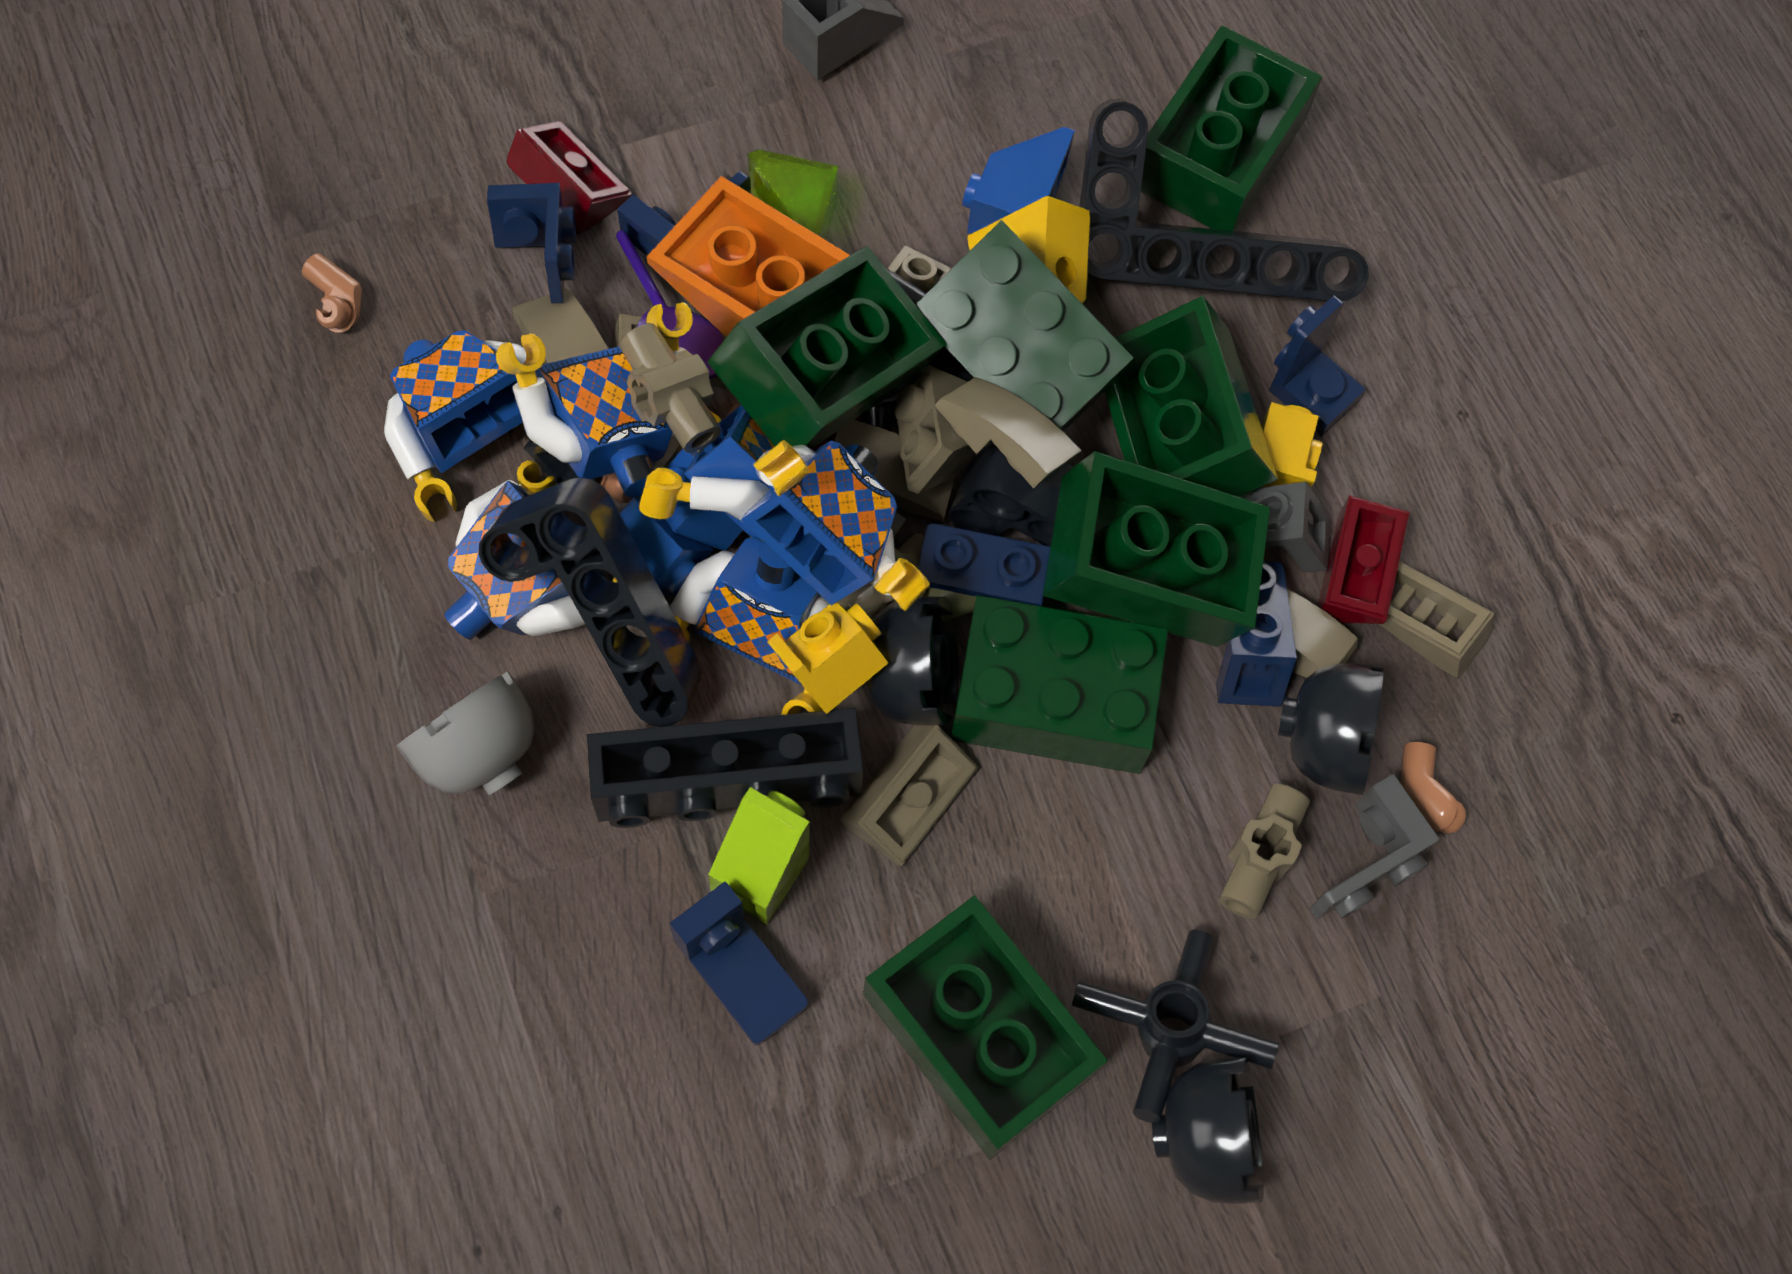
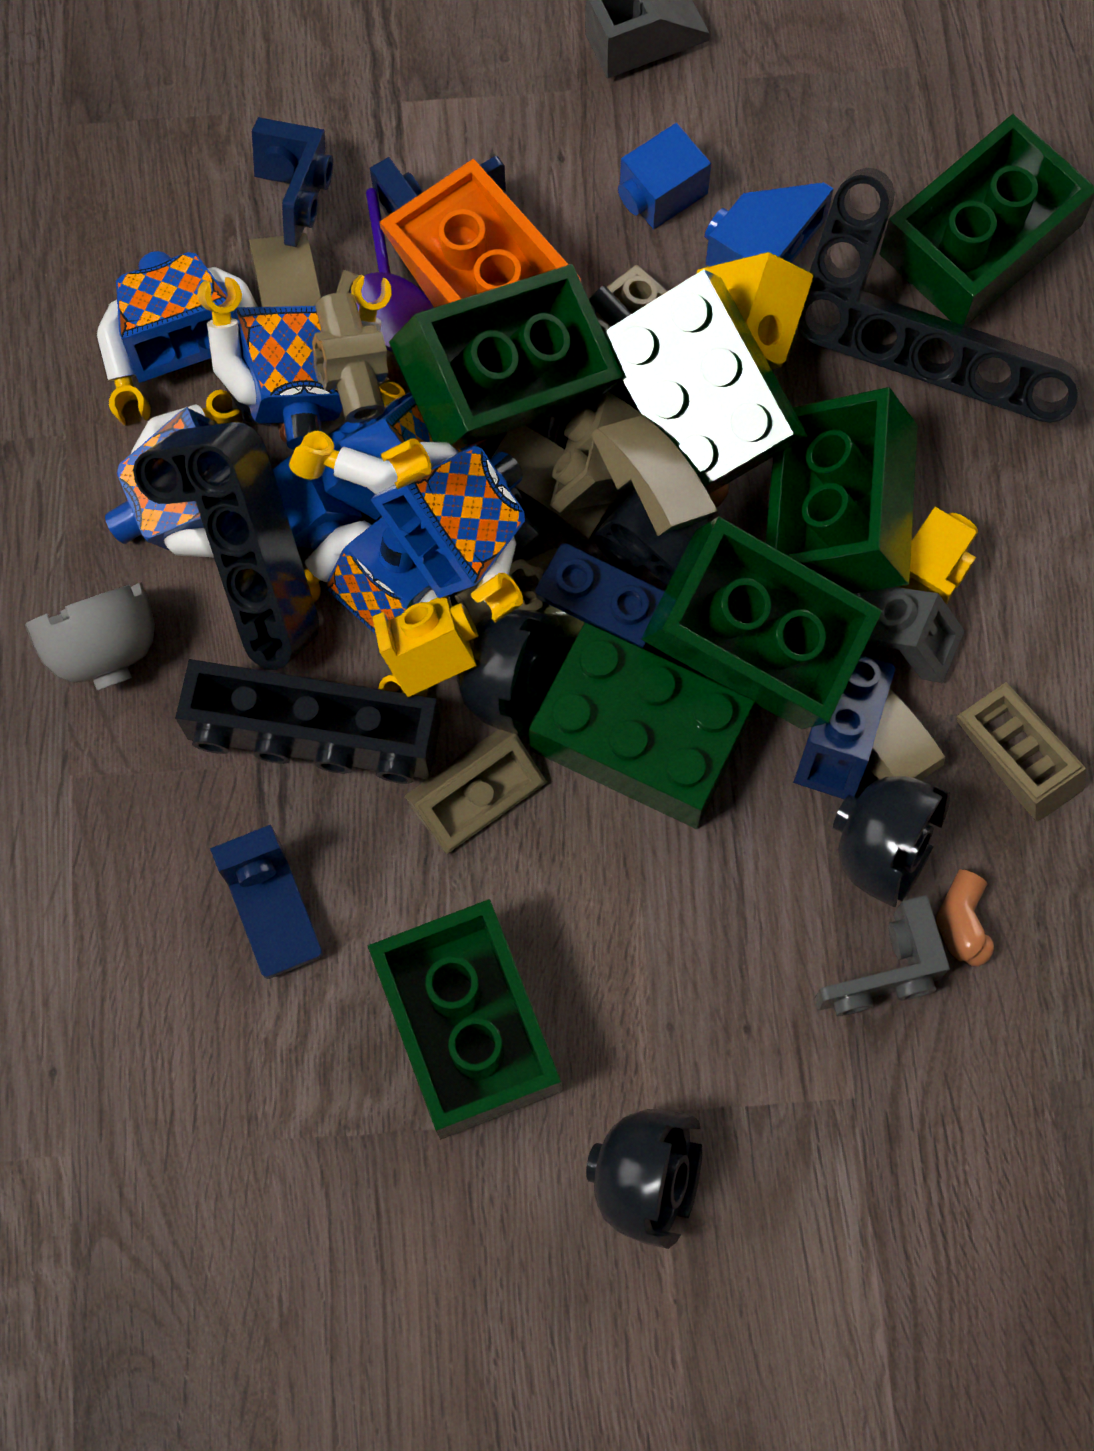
camera: 25 degrees right, 5 degrees up
(341, 294) = (101, 191): nougat arm -> none
(557, 156) = (337, 103): dark red slope -> none
(762, 852) = (316, 809): lime slope -> none
(796, 188) = (549, 190): clear neon green slope -> none
(905, 156) = (663, 176): none -> blue brick
(1168, 1047) = (644, 1090): black bar -> none
(1252, 874) = (803, 910): dark tan axle -> none
(1308, 375) = (990, 489): dark blue bracket -> none
(1363, 561) = (977, 685): dark red slope -> none

